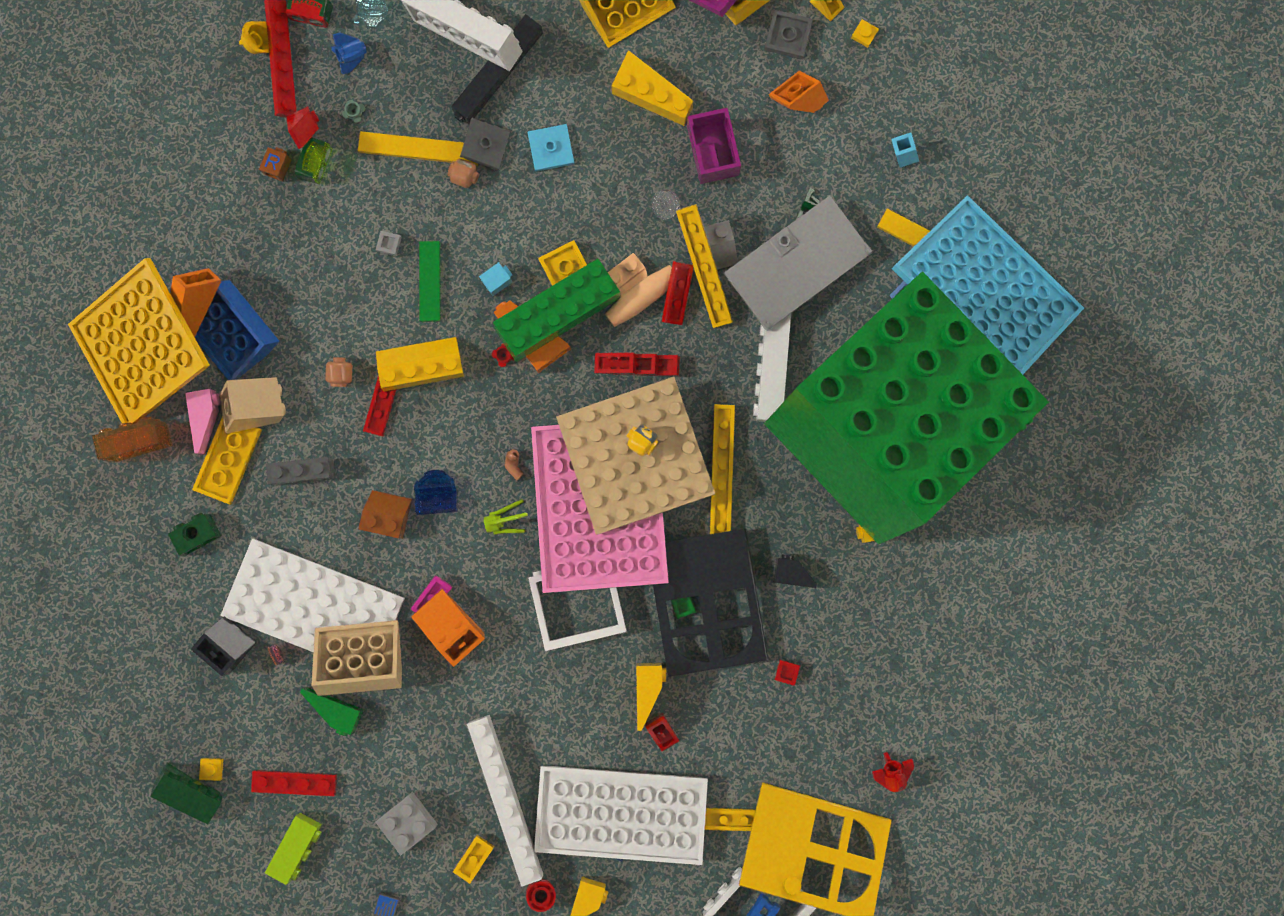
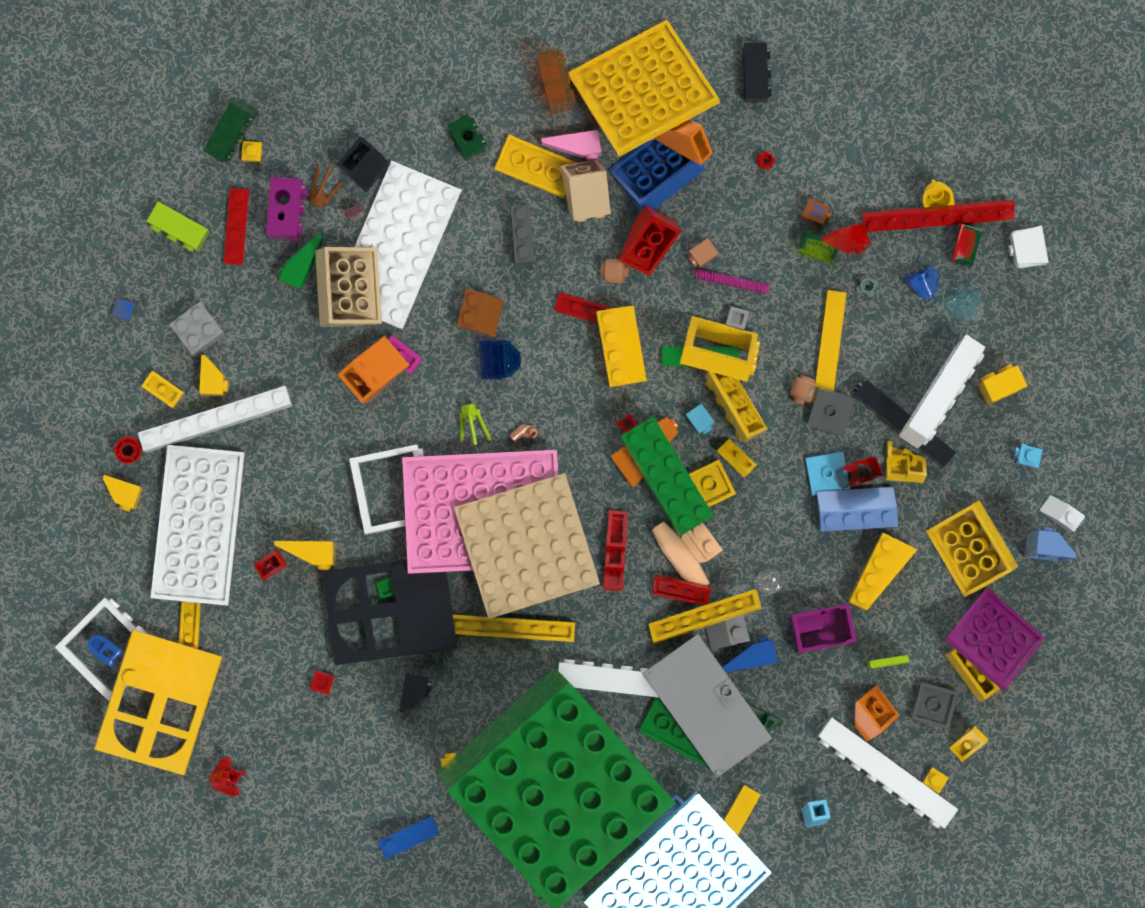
camera: 80 degrees right, 0 degrees up
(125, 229) = (756, 72): none -> black brick
(216, 214) = (770, 160): none -> red plate
(260, 694) = (318, 197): none -> dark orange plant
(282, 729) = (285, 220): none -> magenta piece
(305, 335) = (649, 240): none -> red slope
(319, 280) = (702, 254): none -> nougat brick
(347, 248) = (737, 280): none -> dark pink piece
(431, 258) = (715, 361): none -> yellow window
(462, 805) = (211, 379): none -> yellow slope
(478, 241) = (737, 405): none -> yellow slope
(536, 240) = (736, 458): none -> yellow plate
(543, 66) = (909, 466): none -> yellow slope
(543, 98) = (873, 464): none -> red piece
(587, 115) = (857, 509): none -> medium blue slope
(642, 440) = (539, 551): yellow head -> none
(743, 217) = (756, 655): none -> blue slope
(746, 79) = (887, 661): none -> lime tile
(821, 309) = (663, 728): none -> green tile
(859, 79) = (886, 772): none -> white brick
(948, 575) = (408, 837): none -> blue slope

